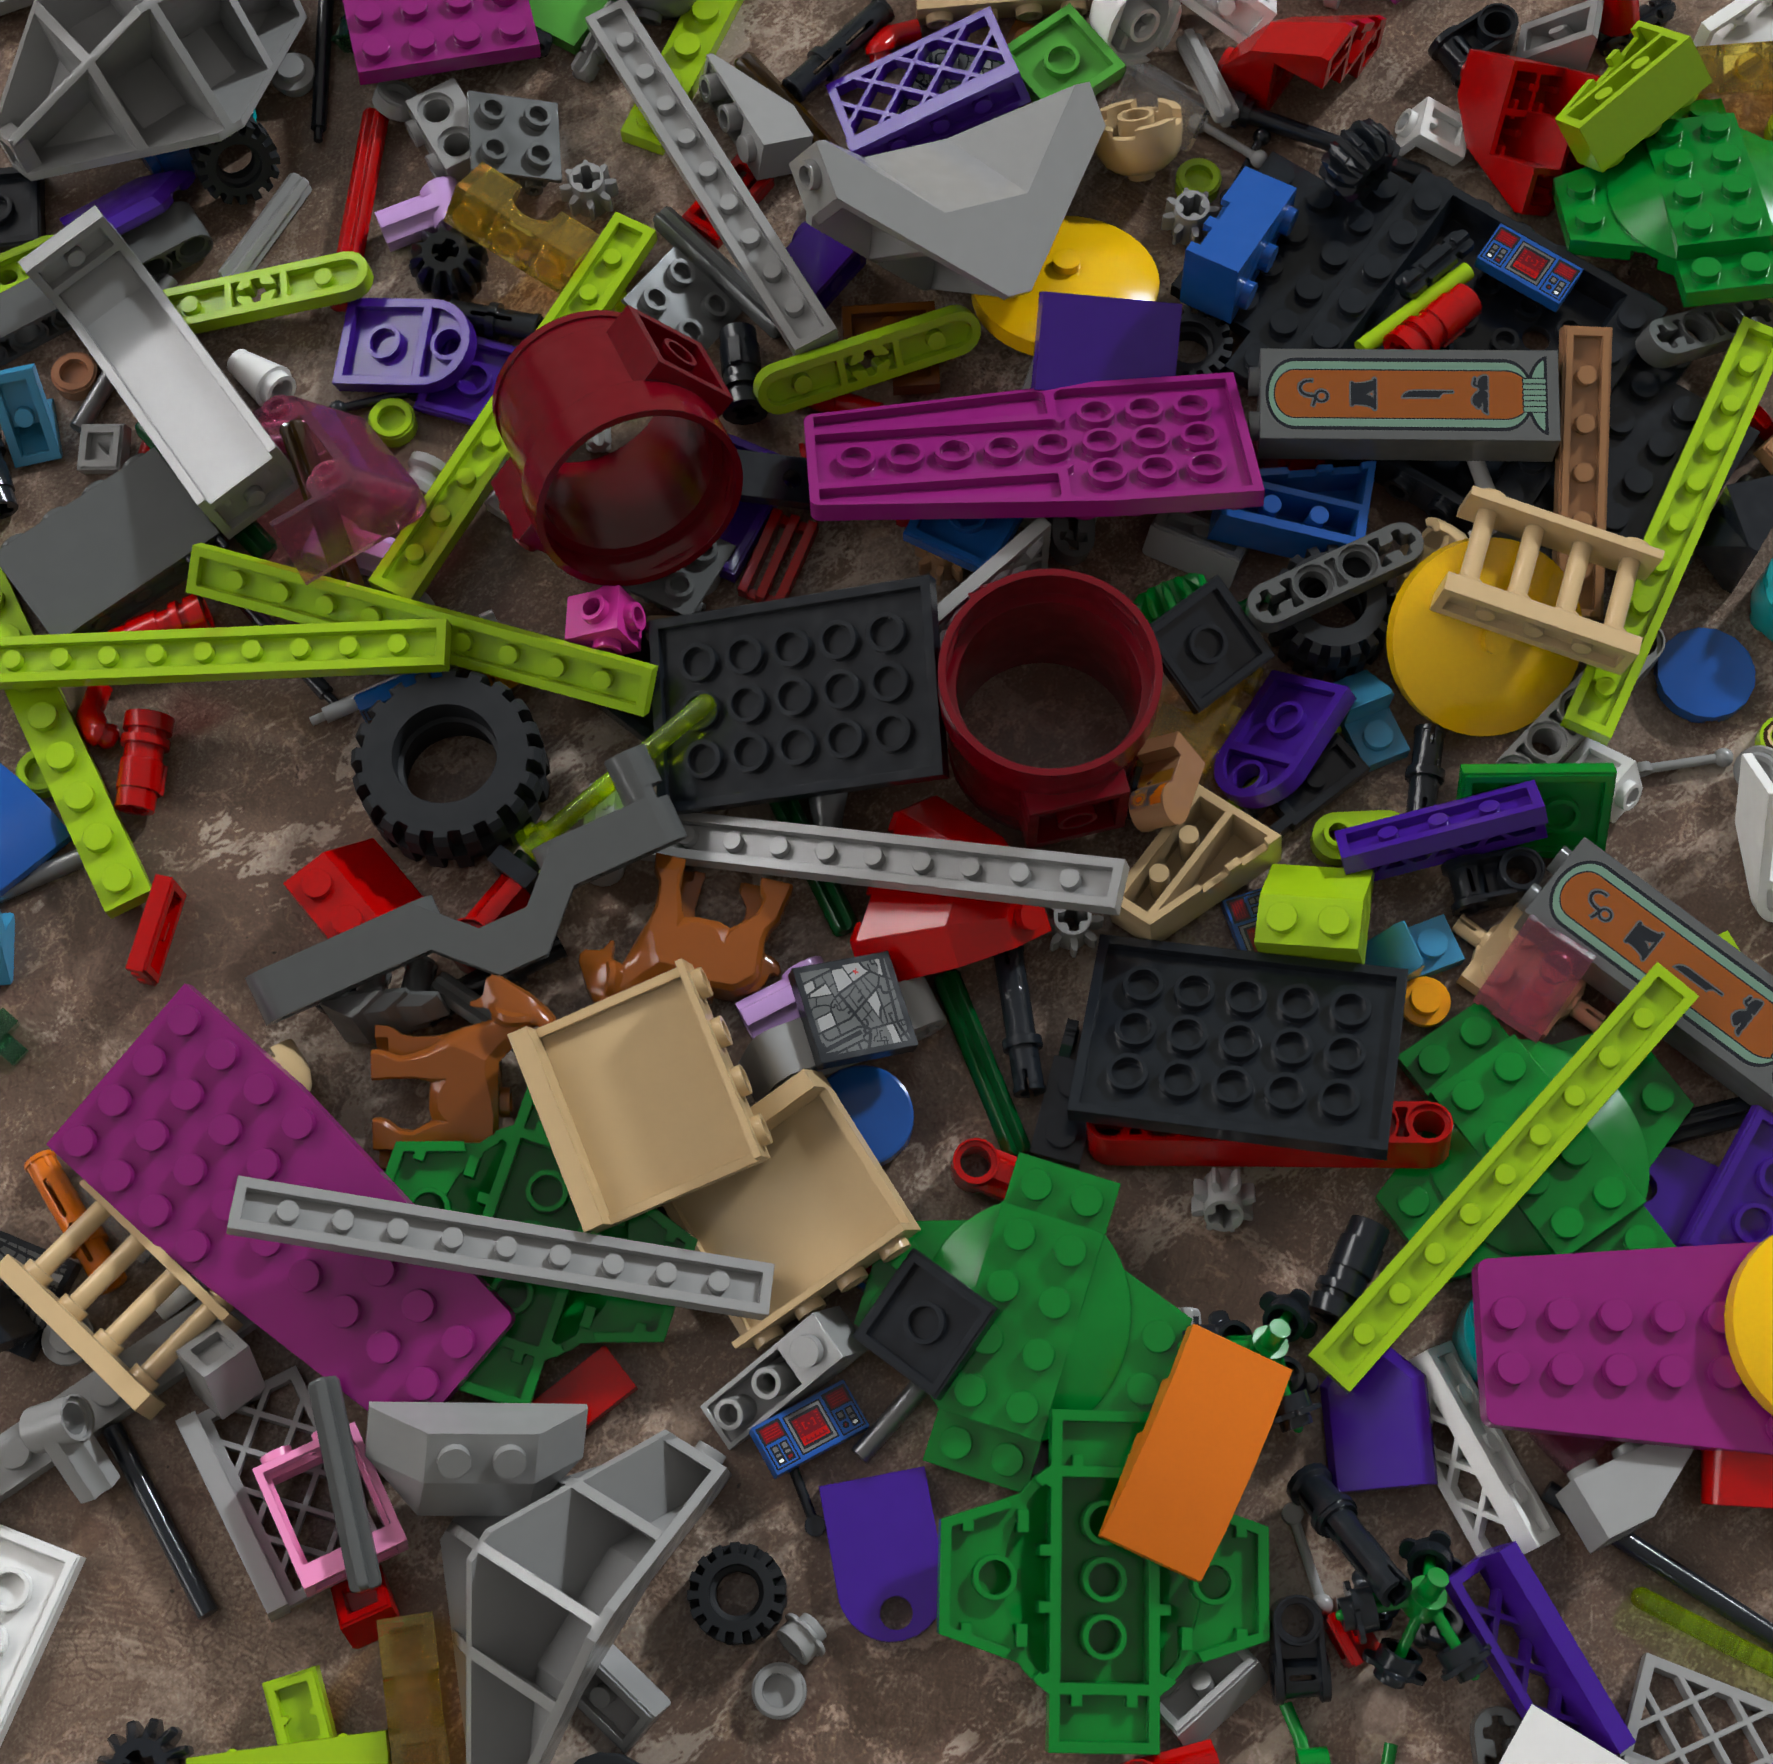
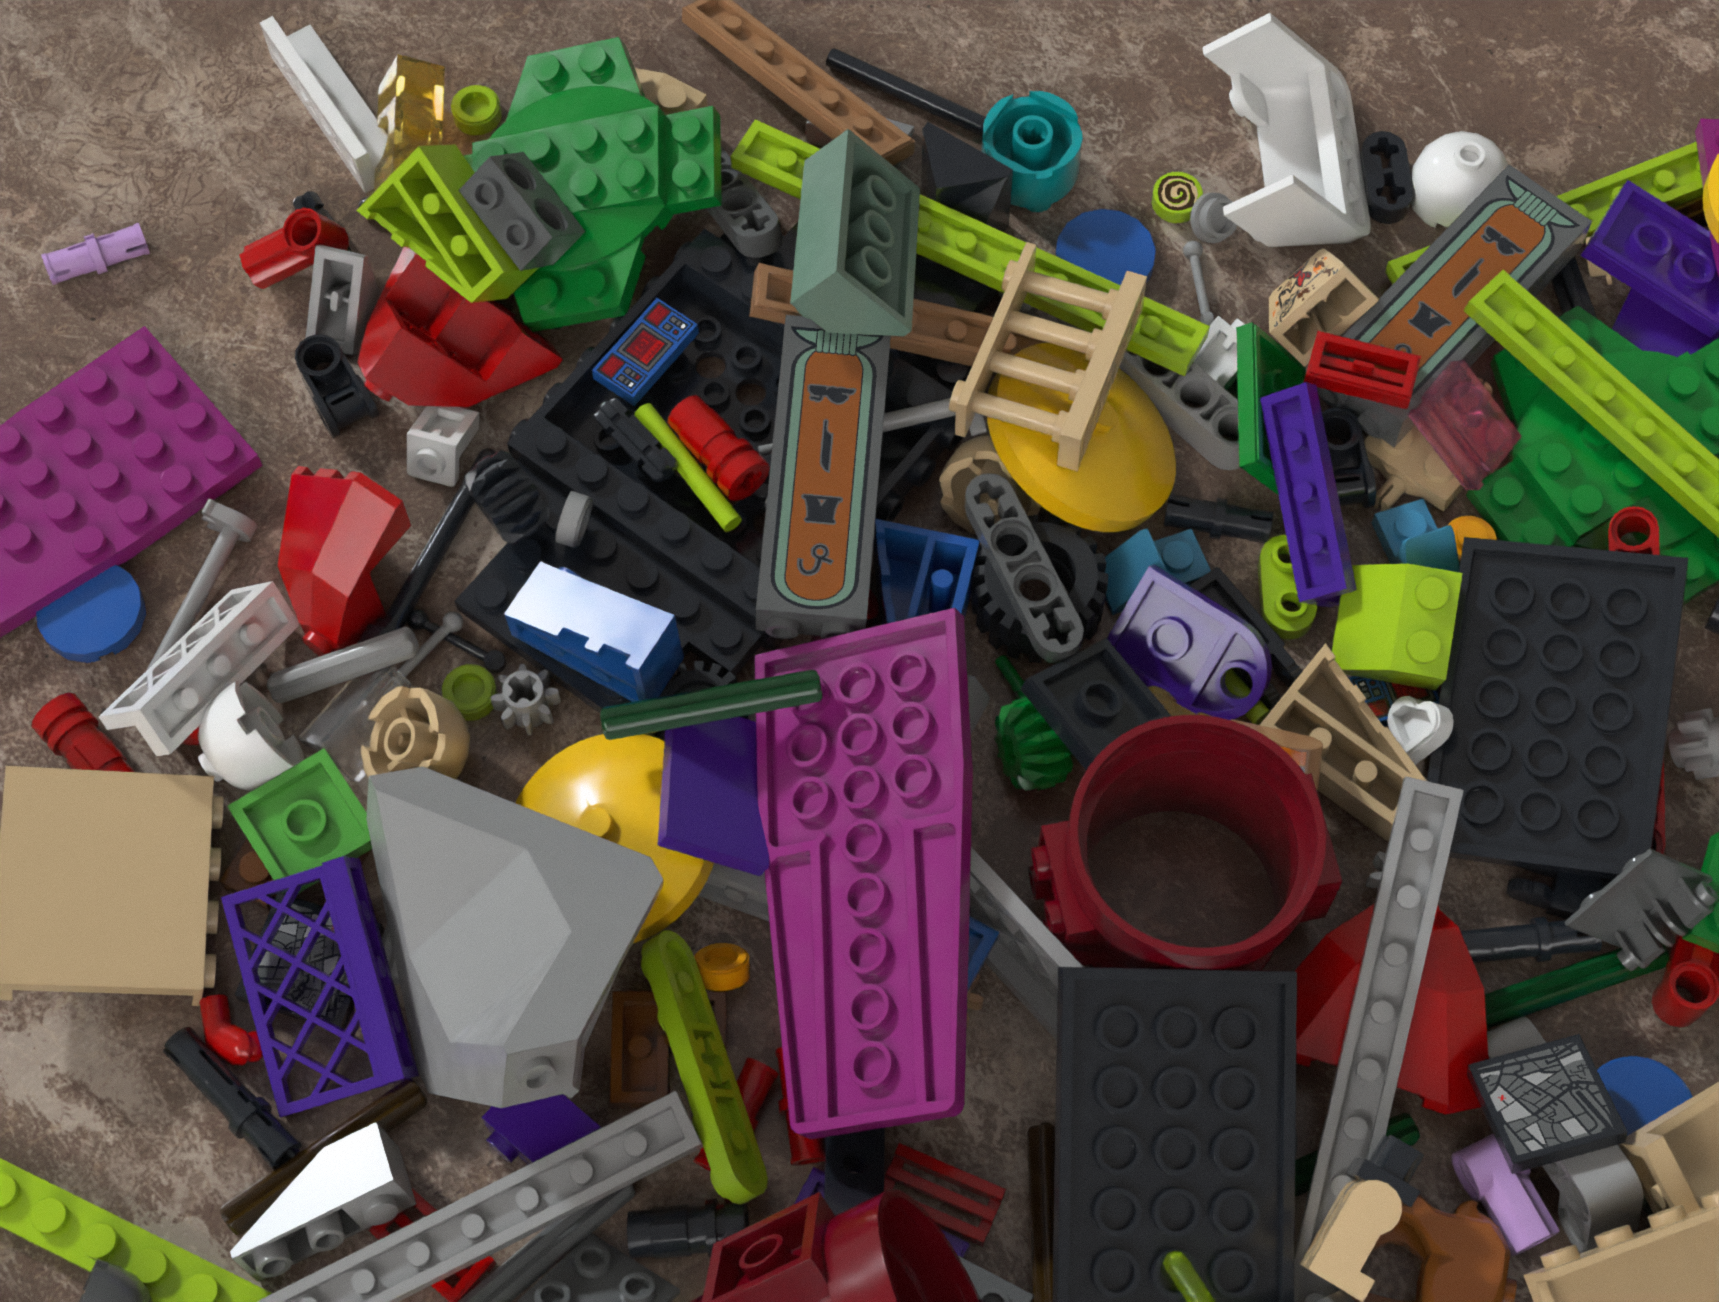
camera: 90 degrees left, 5 degrees down
(718, 827) = (1362, 1214): none -> tan hips
(960, 378) = (723, 966): none -> light orange tile
(1045, 1110) = (1639, 901): none -> dark grey hinge
(1170, 324) = (711, 704): none -> dark green axle
(1214, 931) = (1419, 726): none -> white tile
(1348, 220) = (574, 519): none -> light grey tile
(1566, 909) = (1360, 377): none -> red tile
(1645, 406) = (855, 241): none -> sand green slope
(1655, 133) = (521, 210): none -> dark grey brick
(1673, 861) = (1317, 298): none -> tan torso

